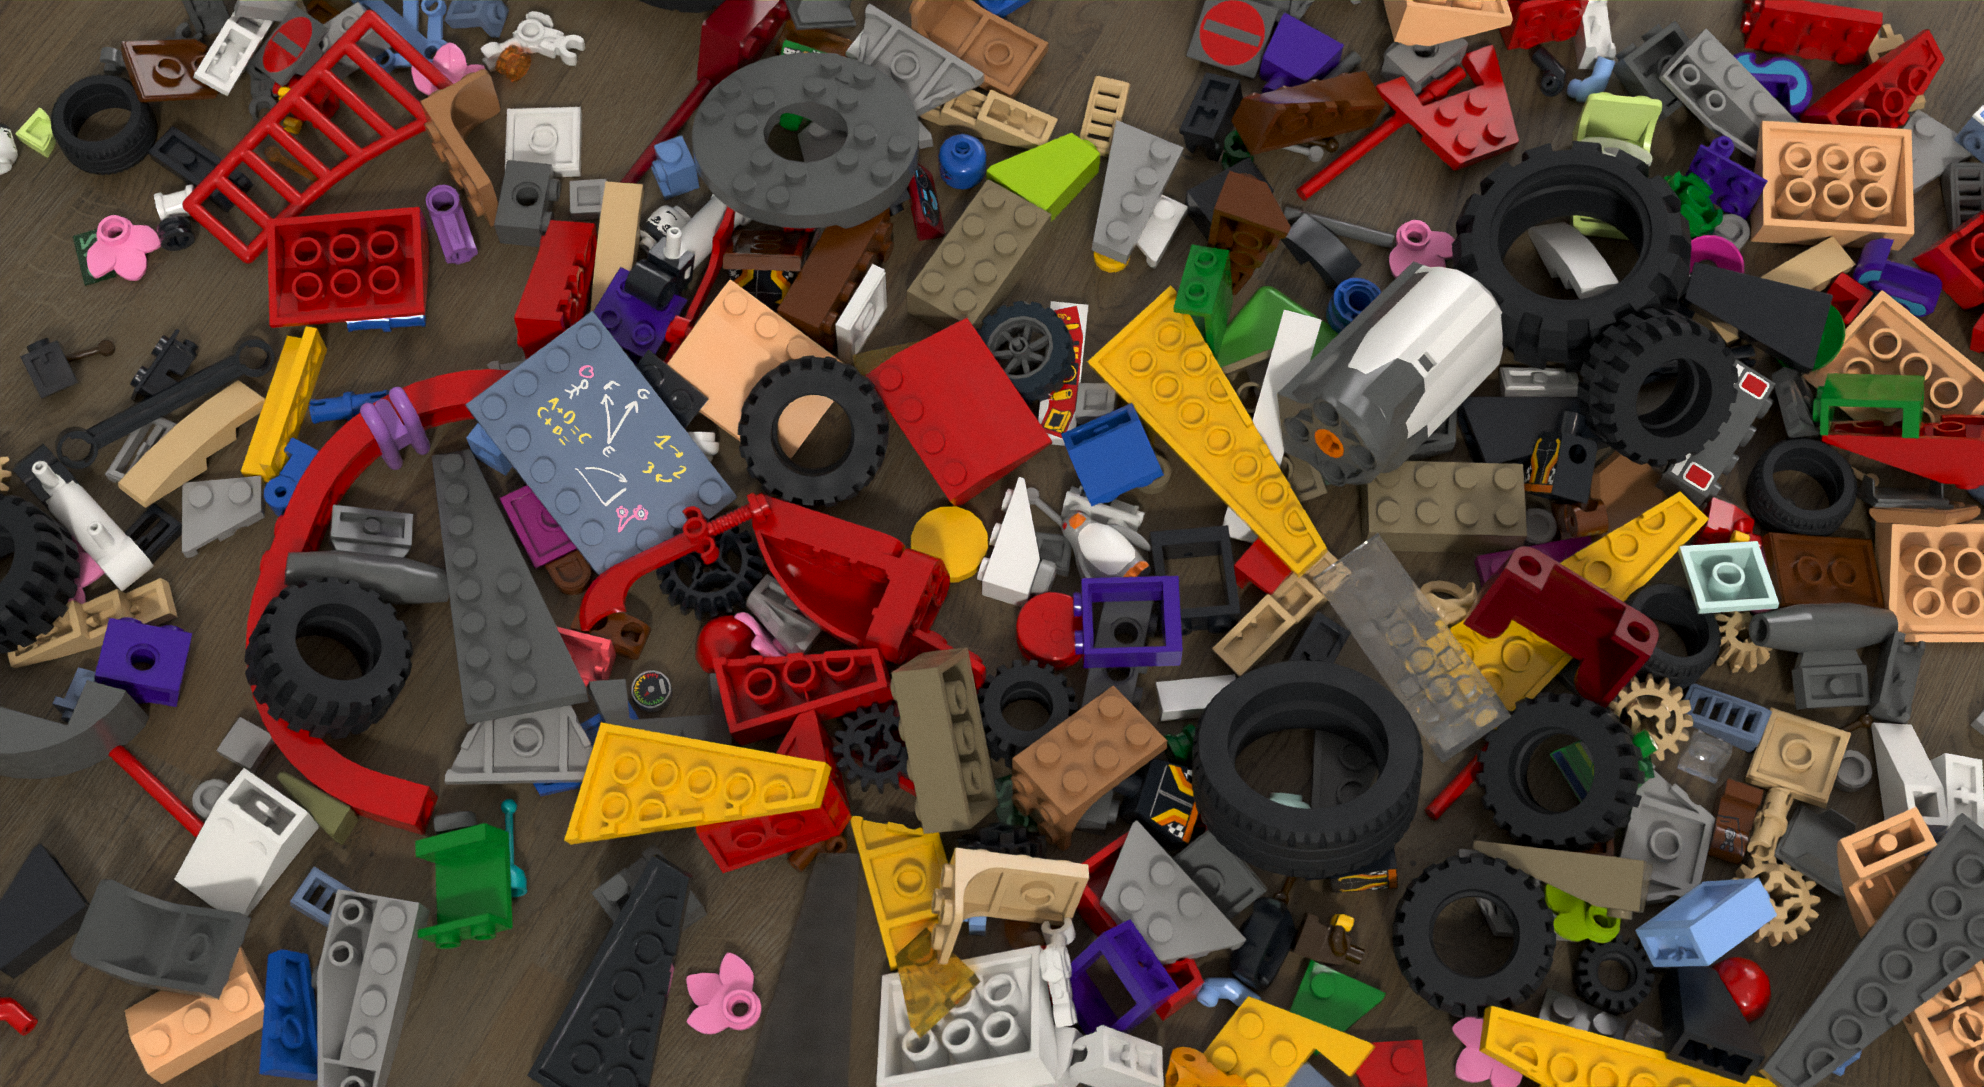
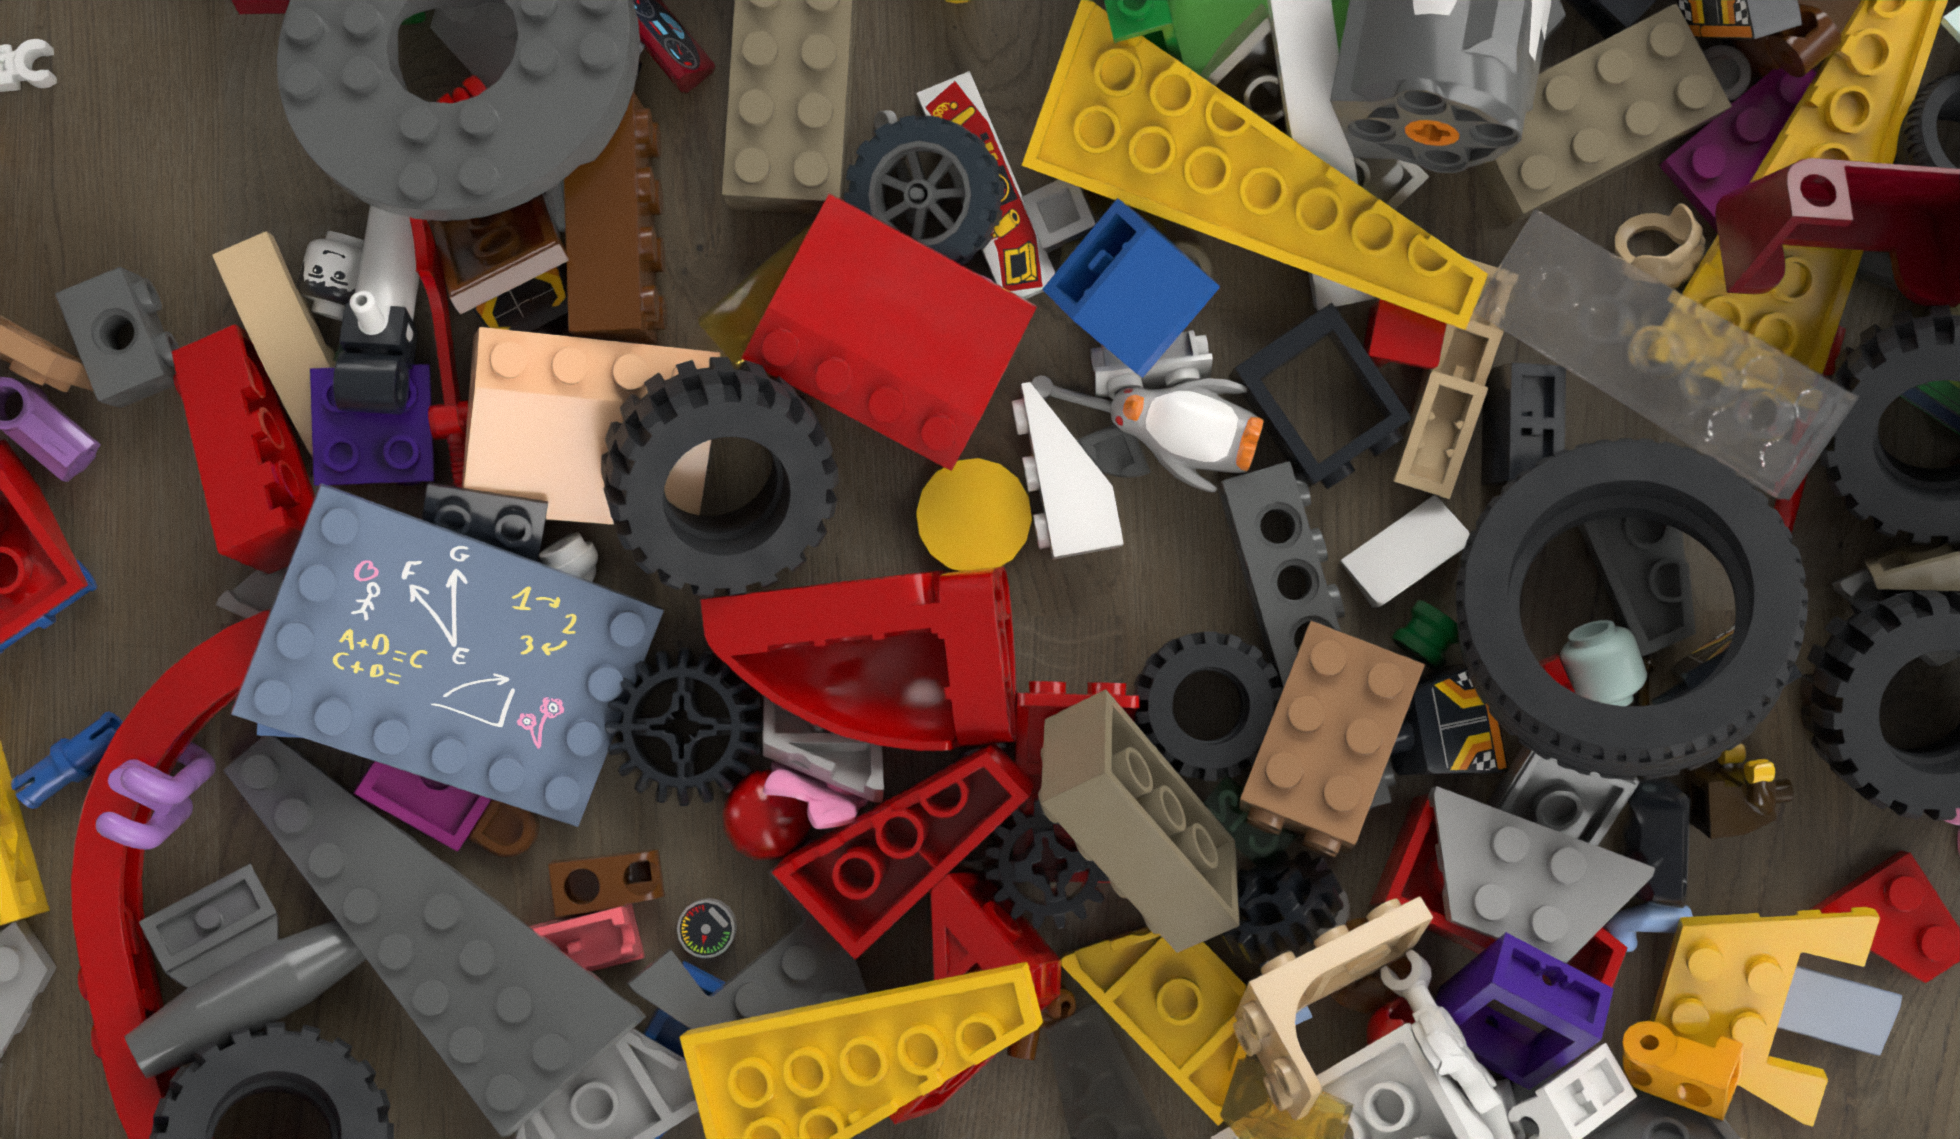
camera: 25 degrees left, 20 degrees up
(280, 489) = (54, 933): blue leg -> none
(546, 137) = (86, 223): white tile -> none
(586, 199) = (197, 280): light grey tile -> none
(610, 588) = (576, 835): red sword -> none
(669, 131) = (248, 124): dark red bar -> none
(674, 168) = (290, 174): medium blue brick -> none
(861, 314) = (679, 260): white tile -> none
(1044, 577) = (1127, 502): light grey tile -> none
(1048, 630) = (1176, 567): red head -> none
(1130, 589) = (1336, 489): dark purple window -> none
(1333, 998) = (1775, 865): green wing -> none

